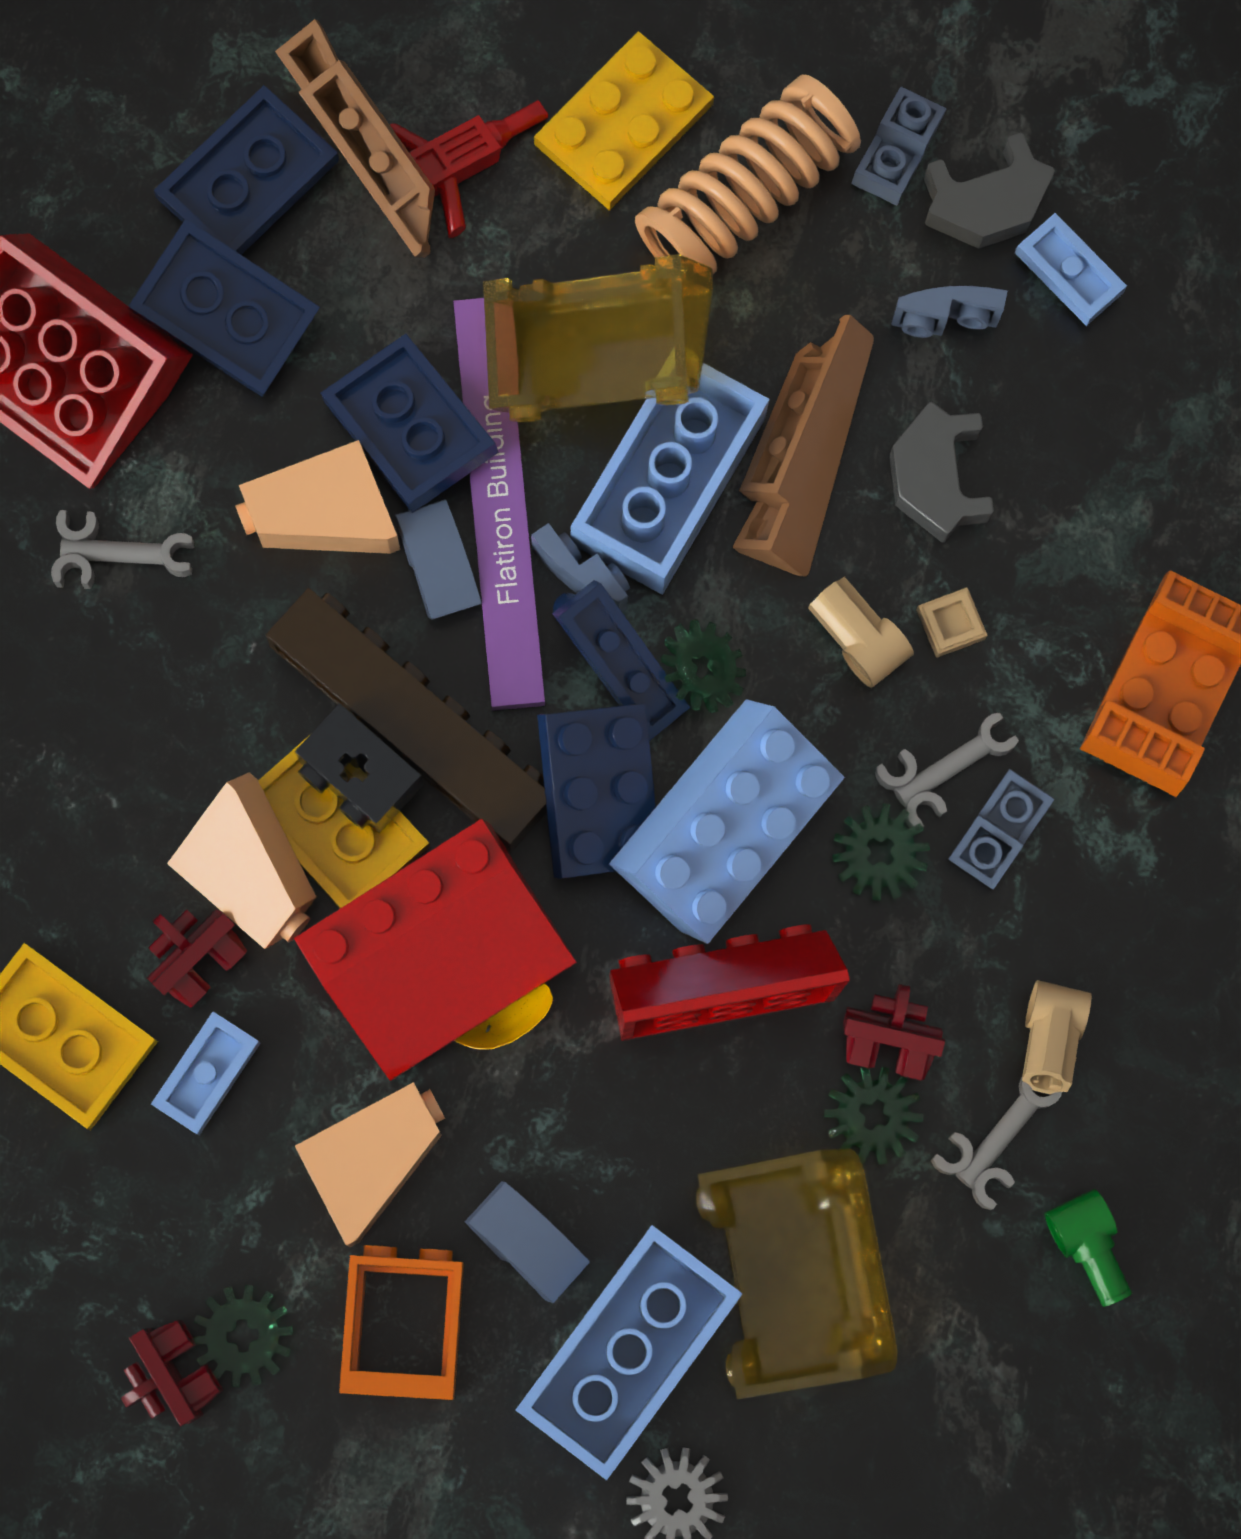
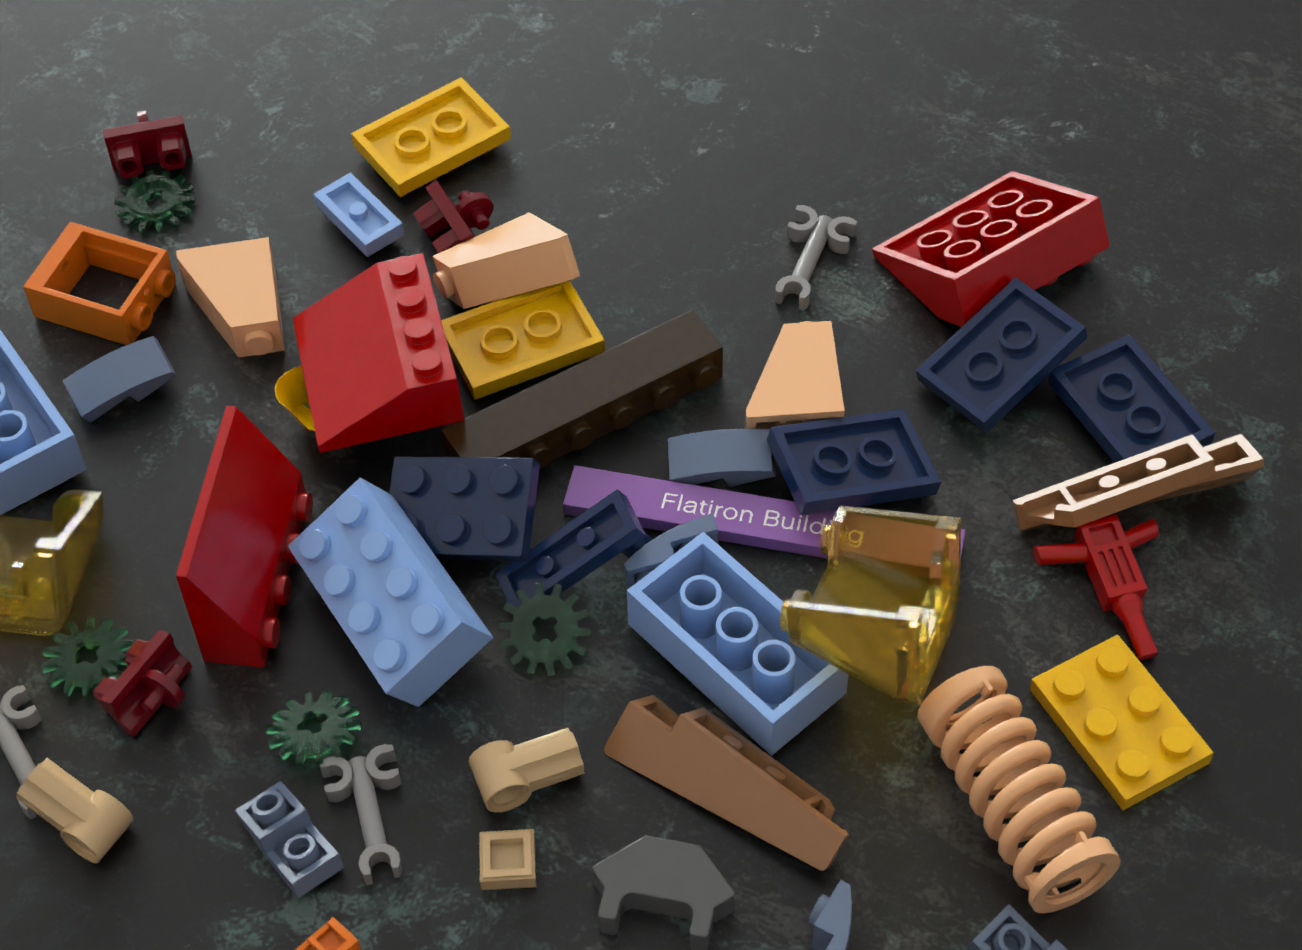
camera: 115 degrees right, 25 degrees down
(346, 740) = (549, 339): black brick -> none

